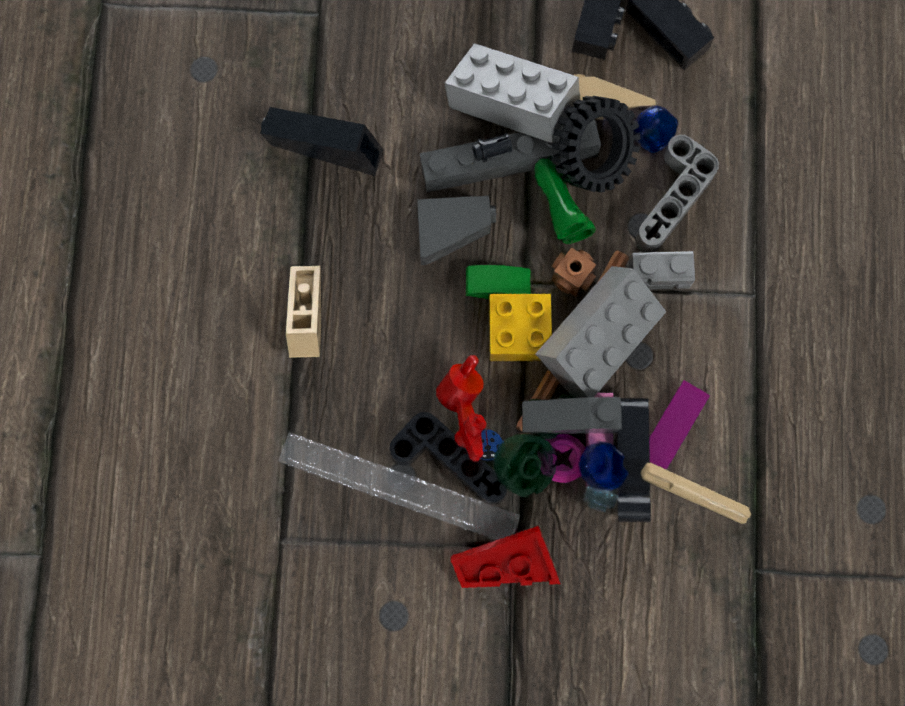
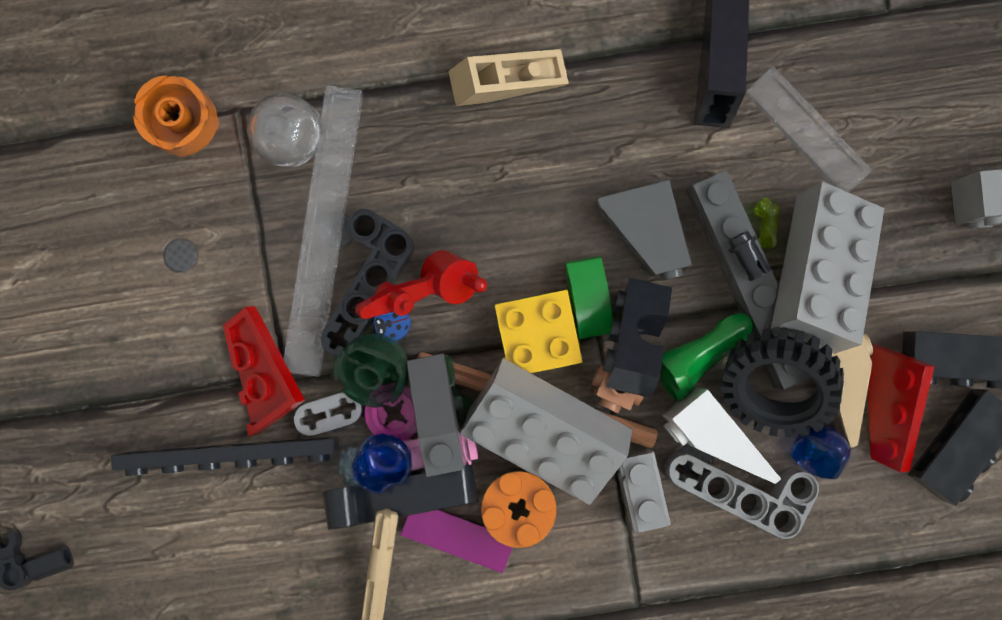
camera: 80 degrees right, 10 degrees up
(259, 585) = (155, 119): none -> orange brick
(308, 501) = (284, 130): none -> clear cylinder
(399, 89) = (808, 130): none -> clear tile
(466, 133) = (769, 223): none -> clear neon green arm
(557, 252) = (633, 362): none -> black arch
(560, 512) = (329, 423): none -> light grey beam
(571, 617) = (211, 456): none -> black plate
(621, 206) = (707, 427): none -> white slope
(630, 65) = (896, 406): none -> red wing
(659, 352) = (538, 501): none -> orange brick

